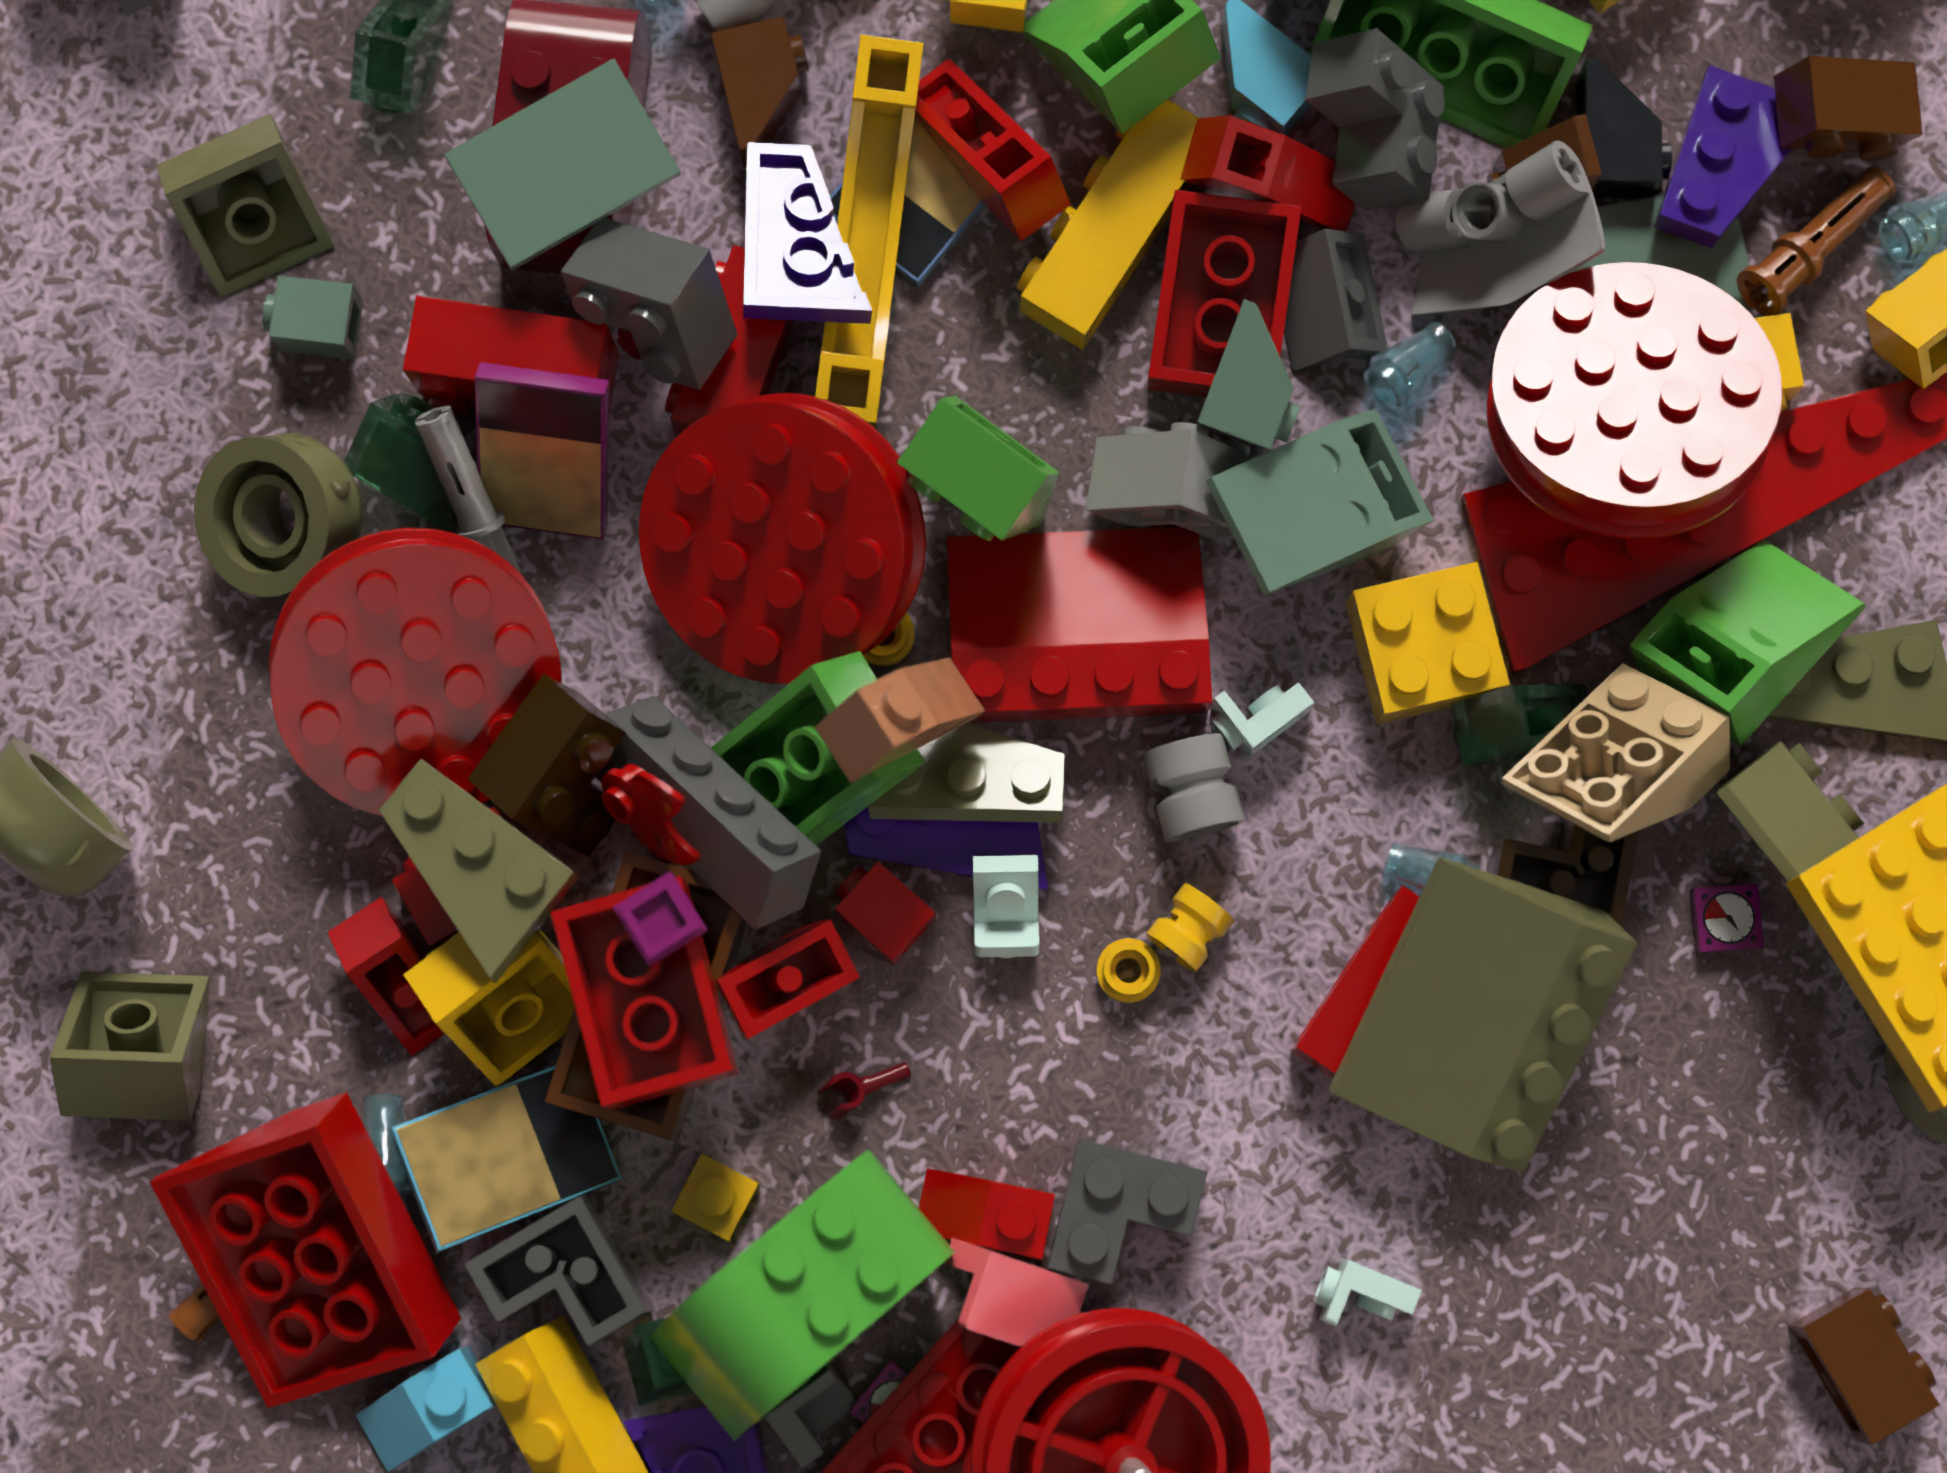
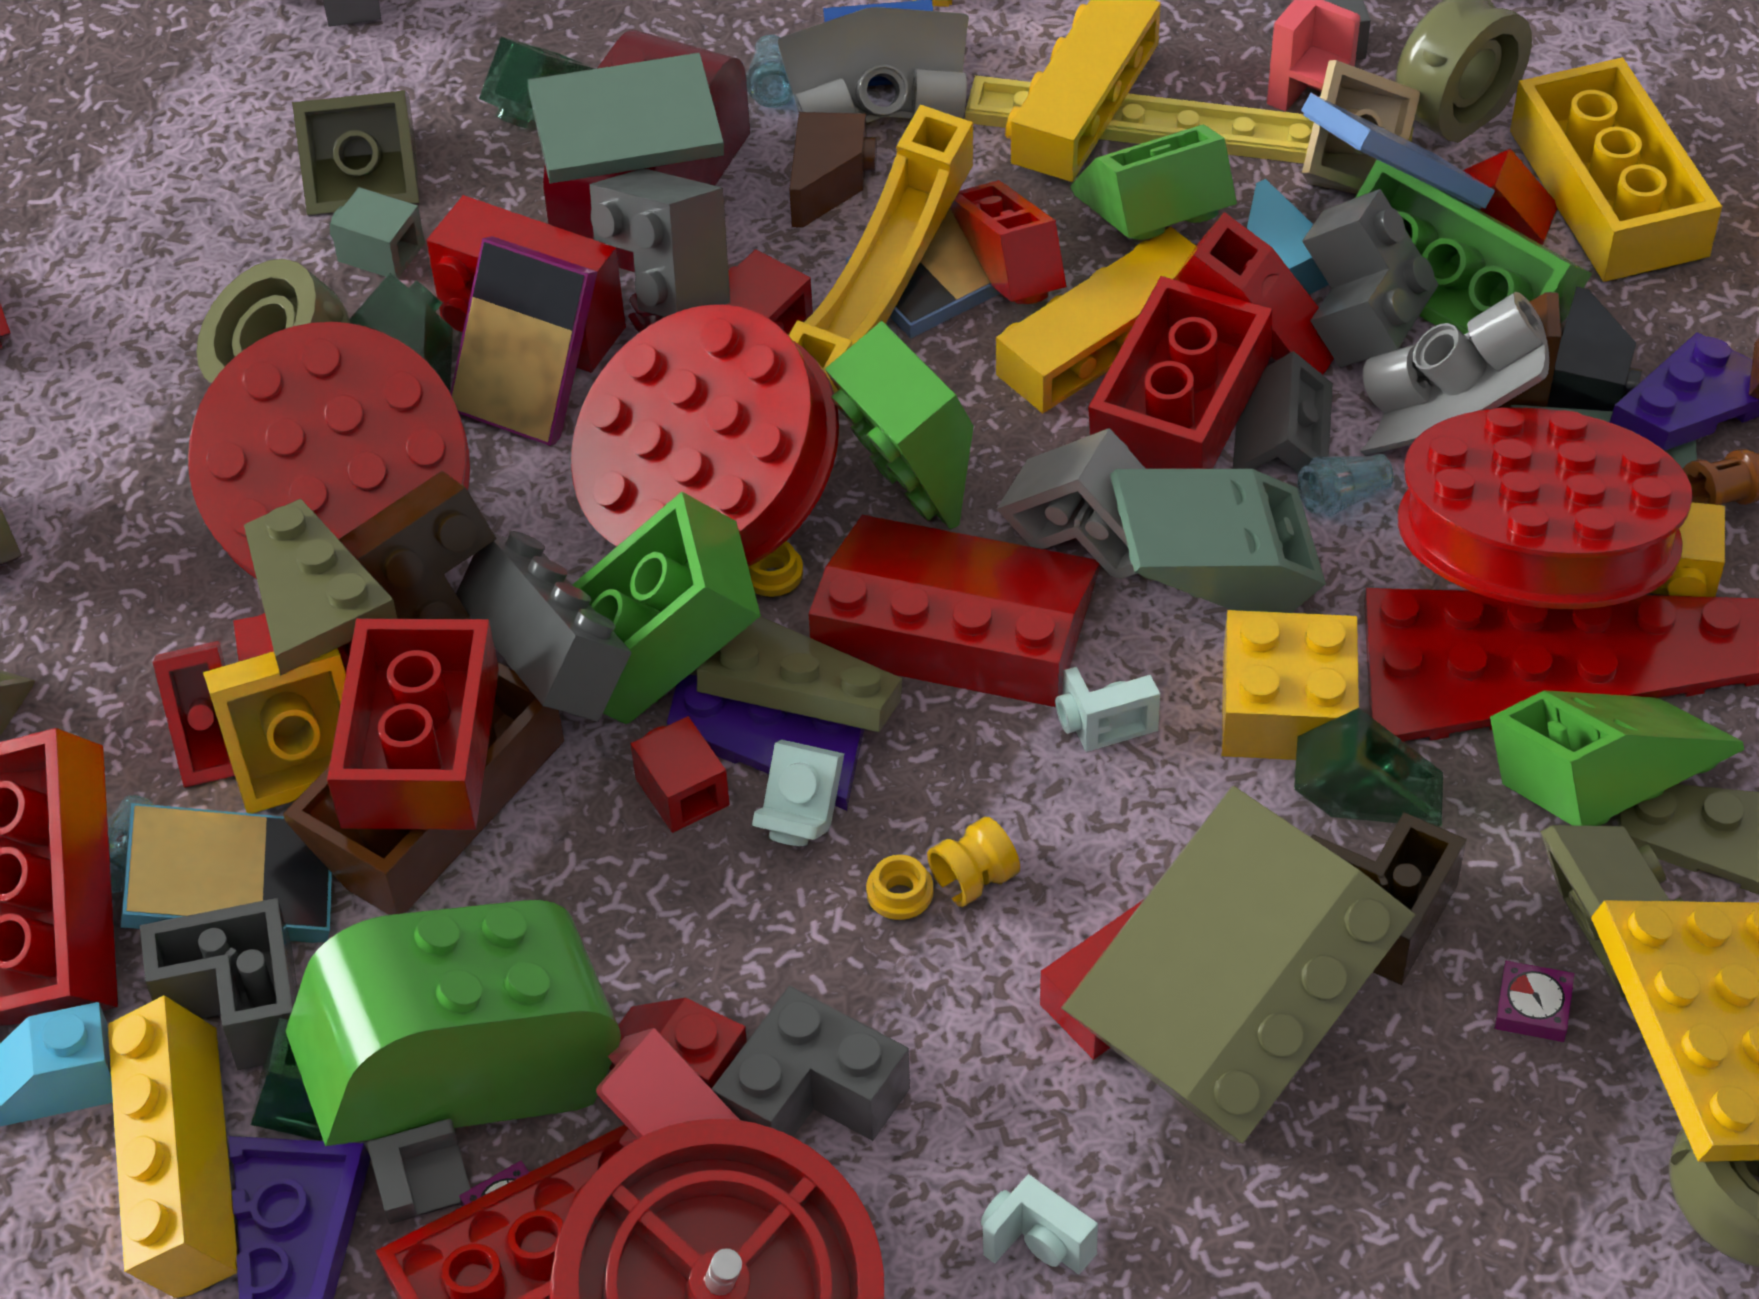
camera: 20 degrees right, 30 degrees down
(462, 482) = (441, 334): light grey axle -> none
(648, 807) = (480, 587): red plate -> none
(660, 918) = (453, 641): magenta tile -> none
(786, 976) = (561, 783): red slope -> none
(792, 242) = (805, 250): wing -> none
(857, 1088) = (587, 914): dark red hand -> none
(897, 716) = (741, 541): nougat slope -> none
(1193, 787) = (1018, 744): light grey wheel -> none
(1250, 386) = (1174, 413): sand green slope -> none
(1626, 757) = (1466, 787): tan slope -> none

